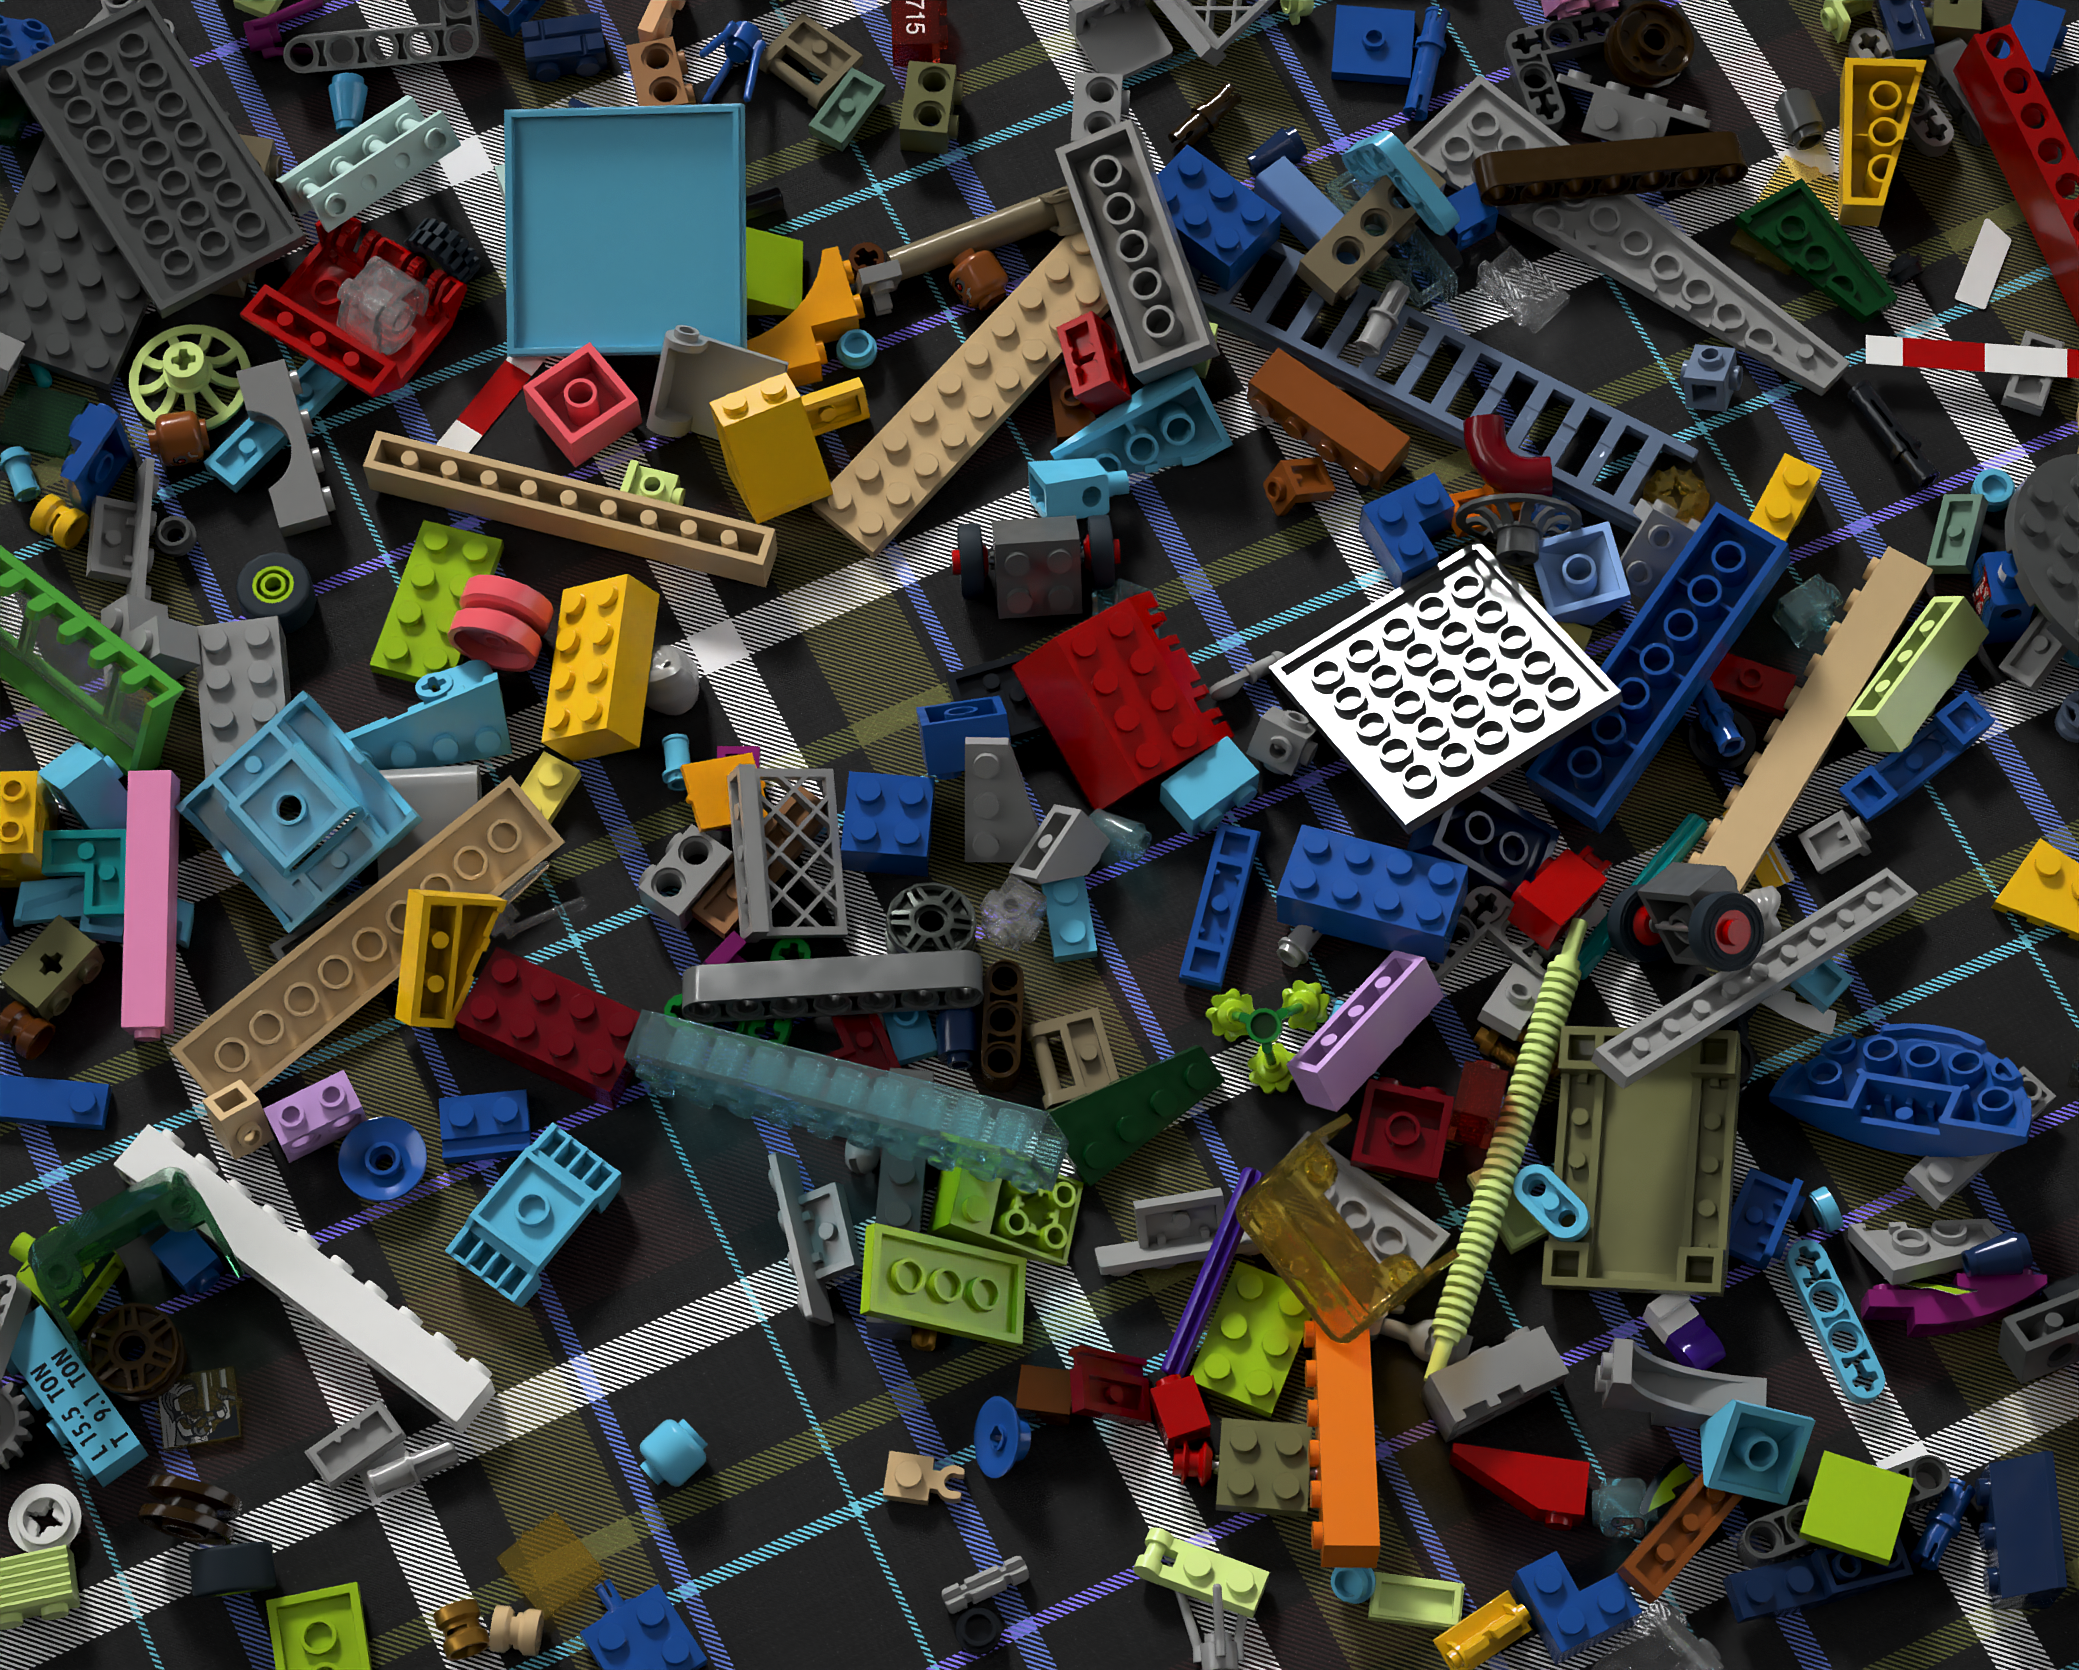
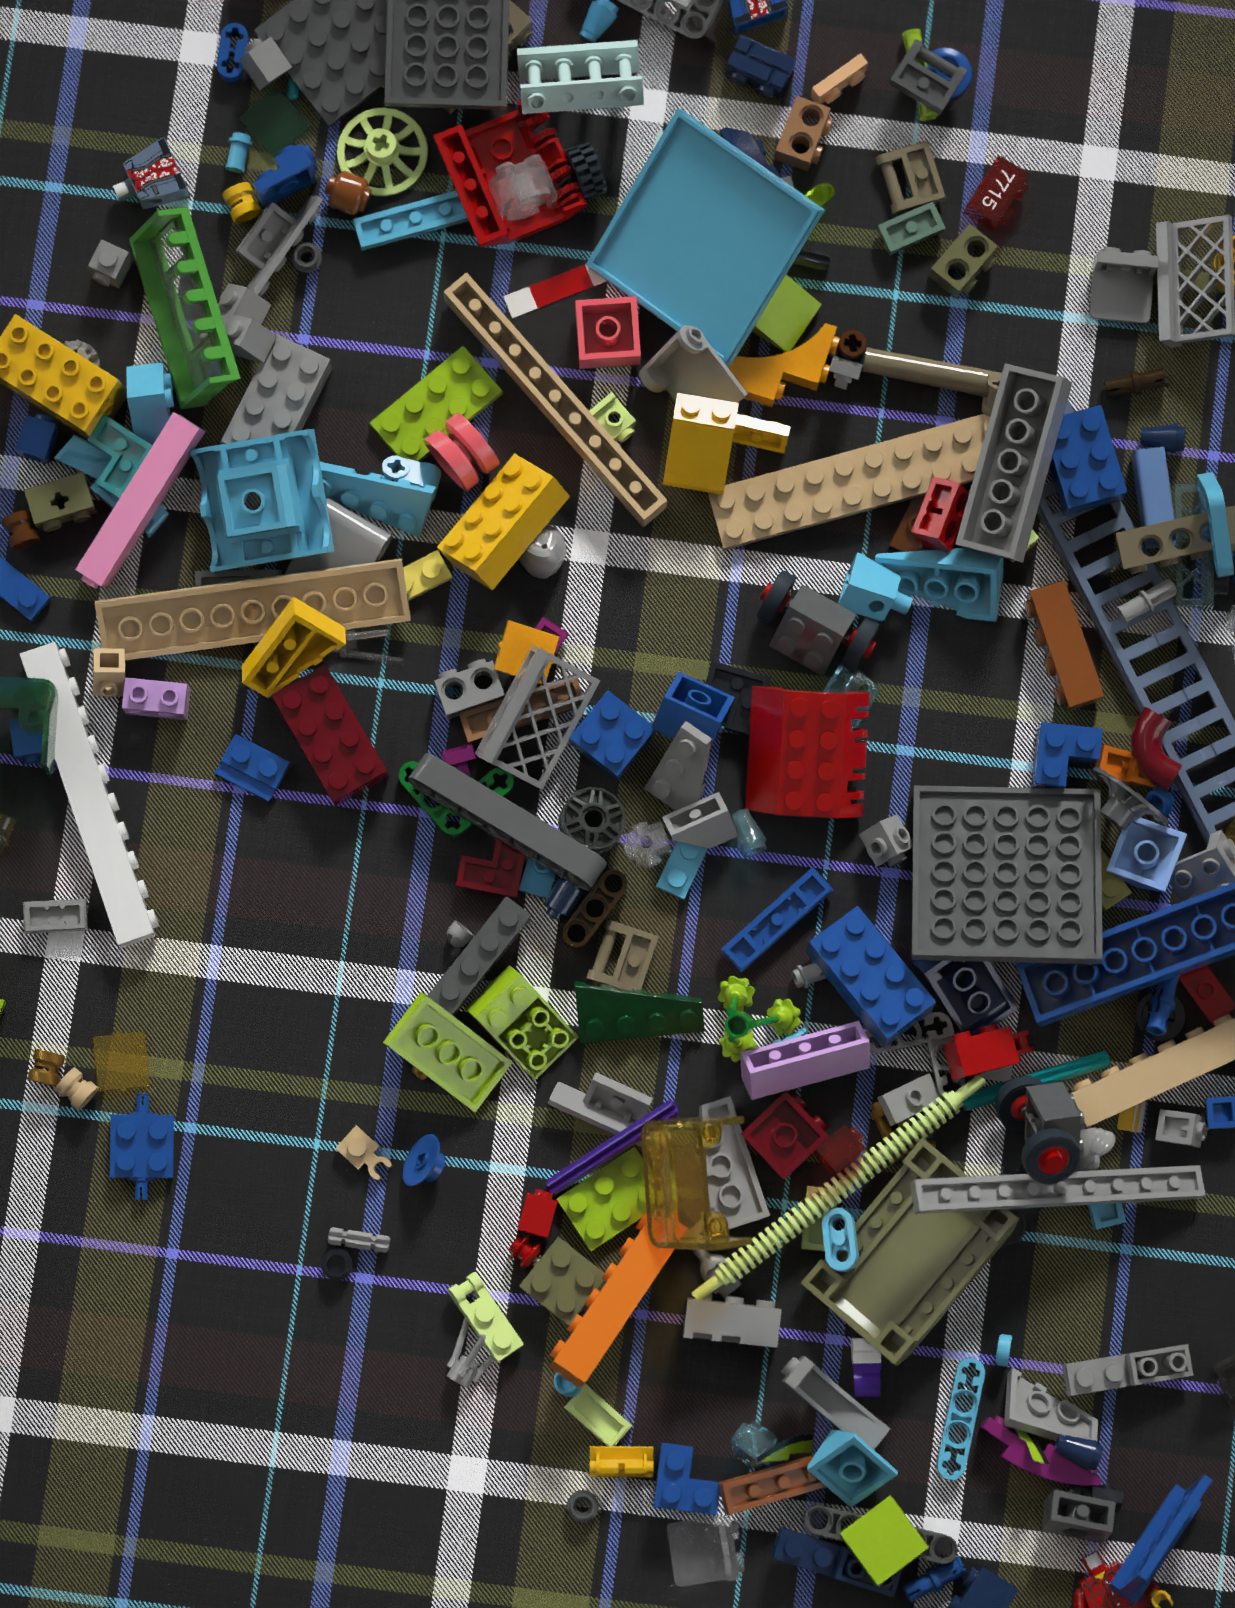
camera: 30 degrees right, 15 degrees up
(271, 399) = (418, 207): light grey arch -> none
(290, 601) = (347, 348): black wheel -> none
(379, 1140) = (173, 736): blue dish -> none
(413, 1467) = (79, 951): light grey axle -> none
(533, 1213) = (243, 845): medium azure plate -> none
(672, 1452) = (231, 1044): medium azure head -> none
(676, 754) = (514, 608): medium azure pin -> none
(741, 43) = (874, 138): blue plant -> none
(817, 1235) = (399, 966): light grey bracket -> none
(848, 1101) = (463, 909): clear light blue brick -> none
(856, 349) = (805, 402): medium azure plate -> none
(978, 279) = (913, 404): dark orange head -> none
(1044, 1395) = (468, 1154): reddish brown brick -> none
(1093, 116) = (1061, 336): light grey brick -> none
(1109, 1386) = (505, 1174): dark red plate -> none
(1210, 787) = (823, 841): medium azure brick -> none
(1231, 685) = (902, 781): light grey piece -> none
(1298, 482) = (1017, 675): dark orange bracket -> none
(1535, 1484) = (714, 1399): red slope -> none
(1761, 1216) = (961, 1329): blue bracket -> none
(1805, 1014) = (1084, 1223): white sticker -> none
(1911, 1092) = (1106, 1315): blue brick -> none

